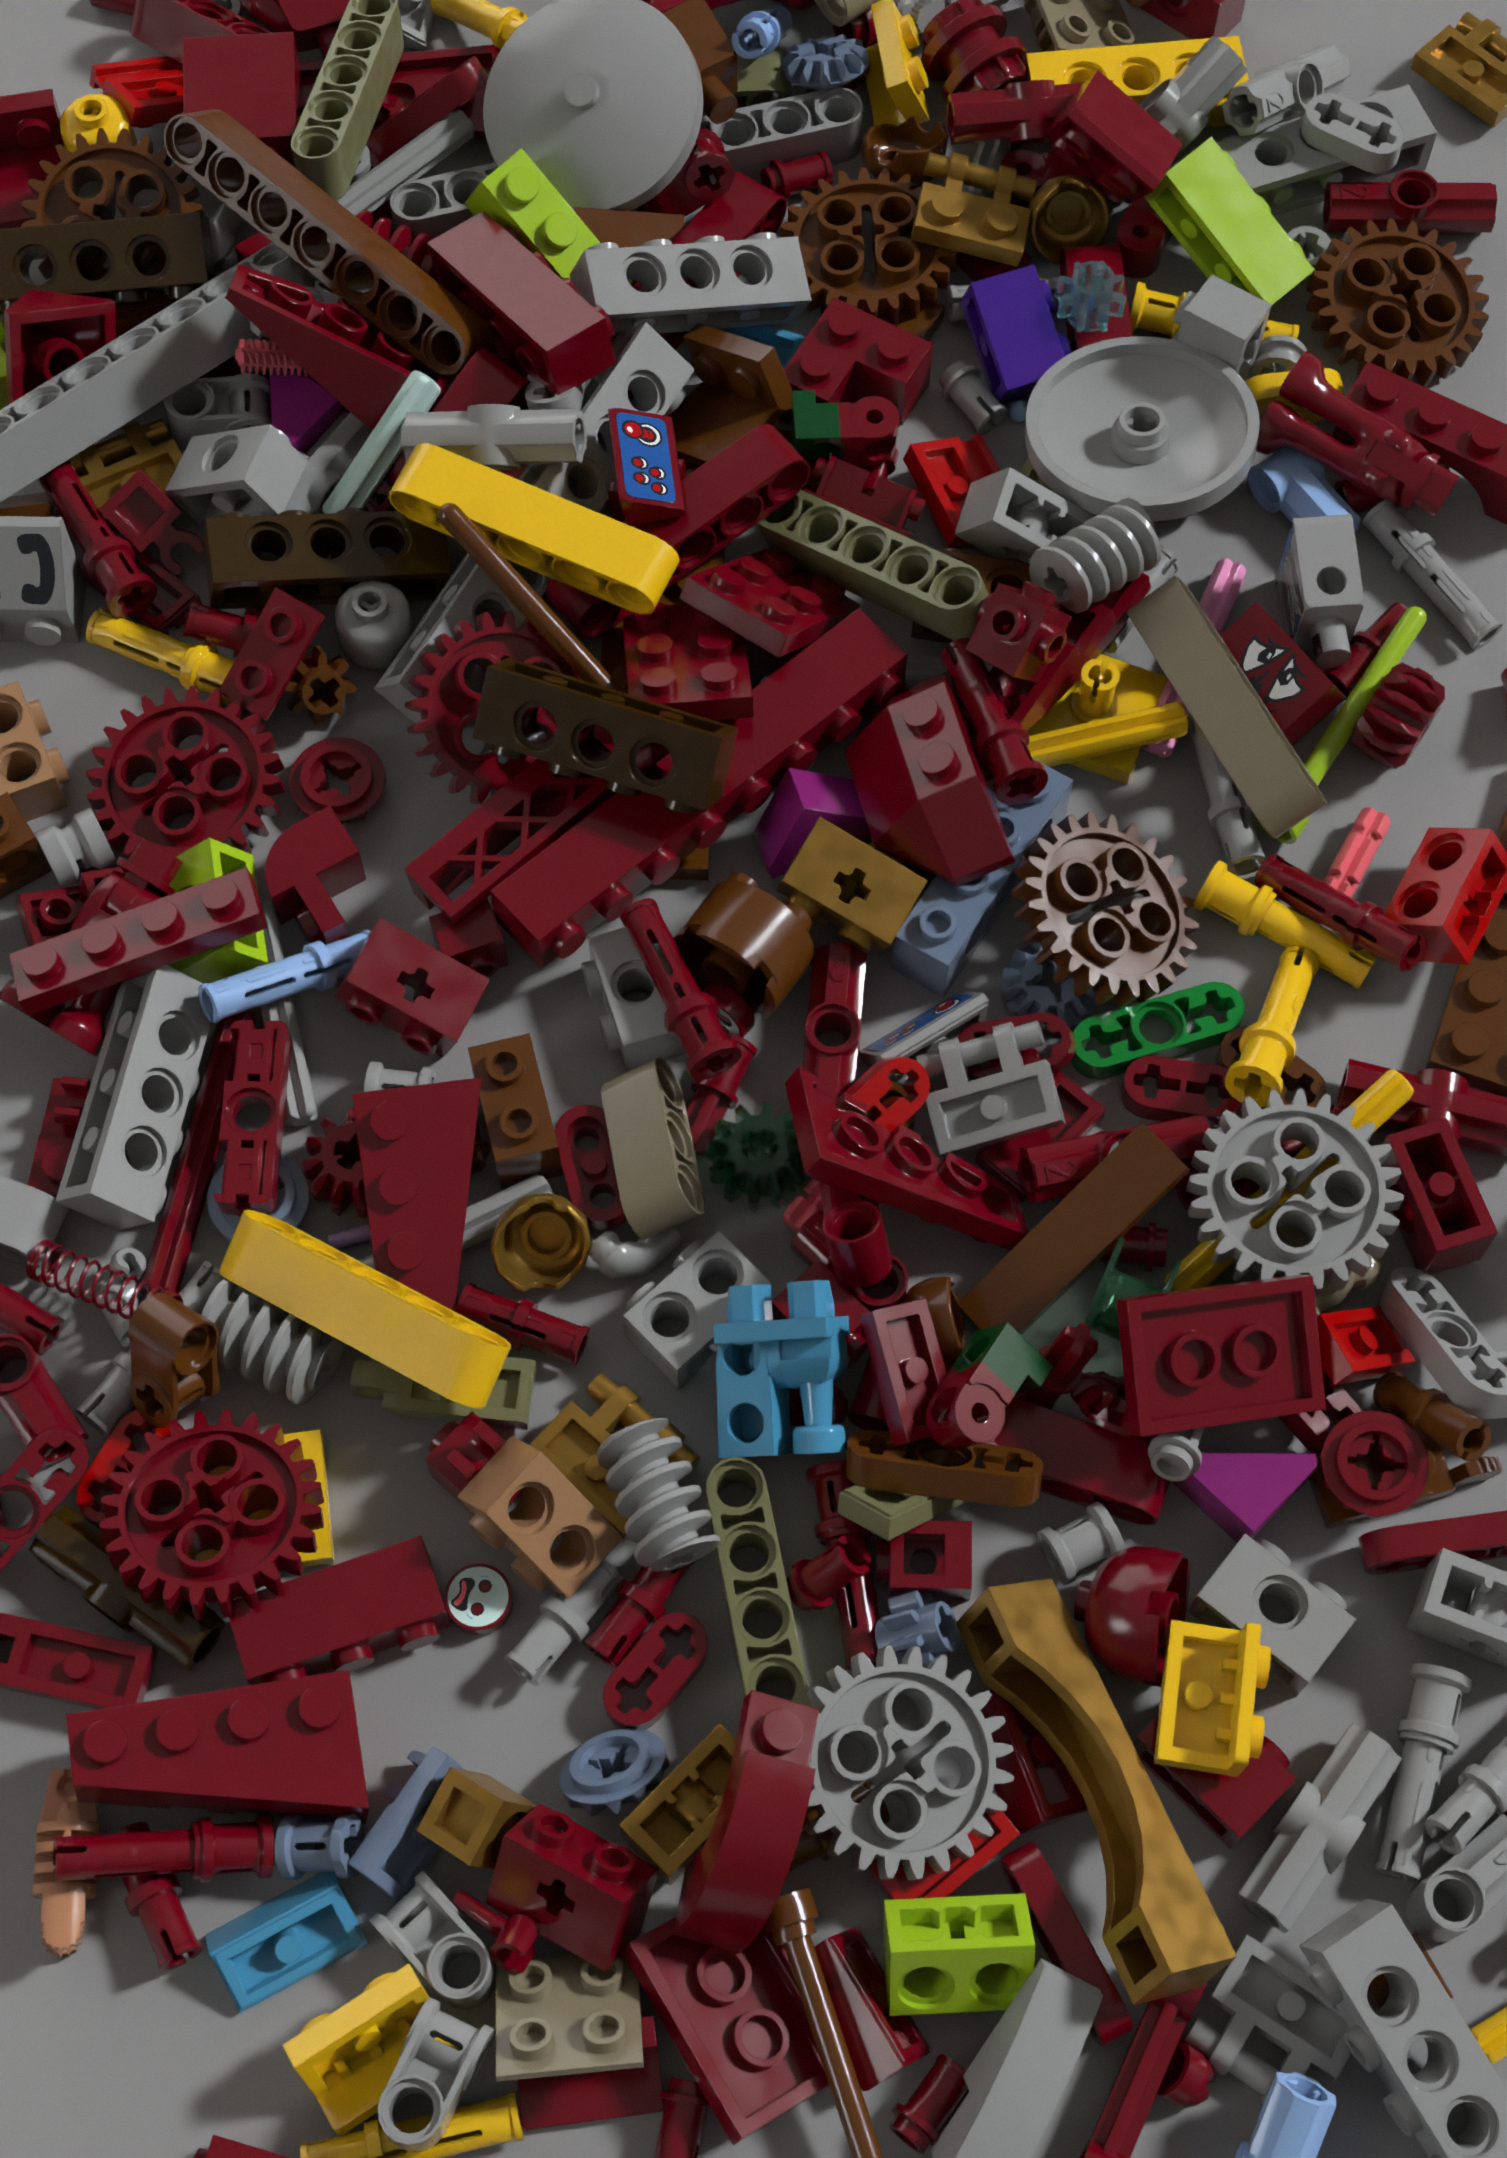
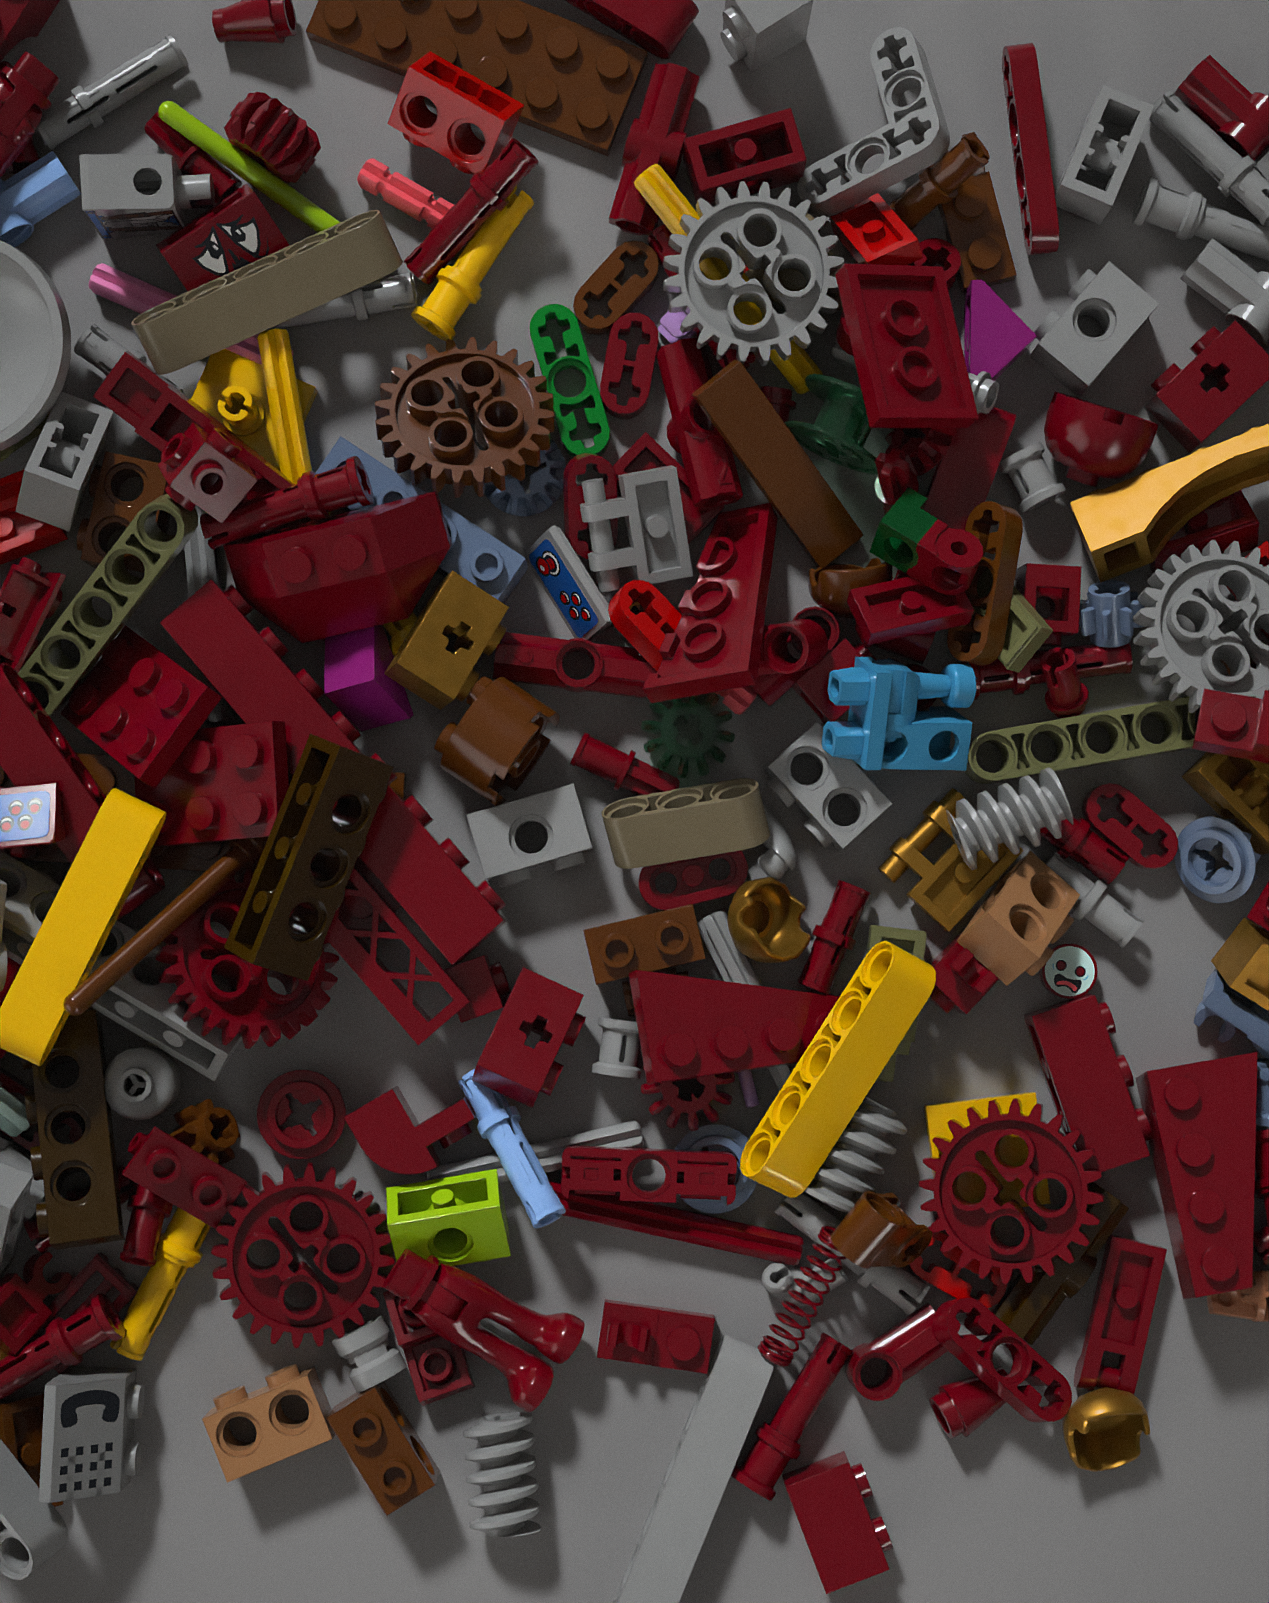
camera: 90 degrees left, 20 degrees up
(114, 1115) = (627, 1278): light grey brick -> none
(137, 941) = (495, 1283): dark red plate -> none
(687, 1007) = (483, 827): dark red pin -> none
(734, 1011) = (549, 760): dark red tile -> none
(1097, 556) = (118, 395): light grey piece -> none
(1211, 1697) = (1183, 378): yellow bracket -> none
(1269, 1042) = (600, 284): yellow pin -> none
(1396, 1445) = (999, 219): dark red gear -> none

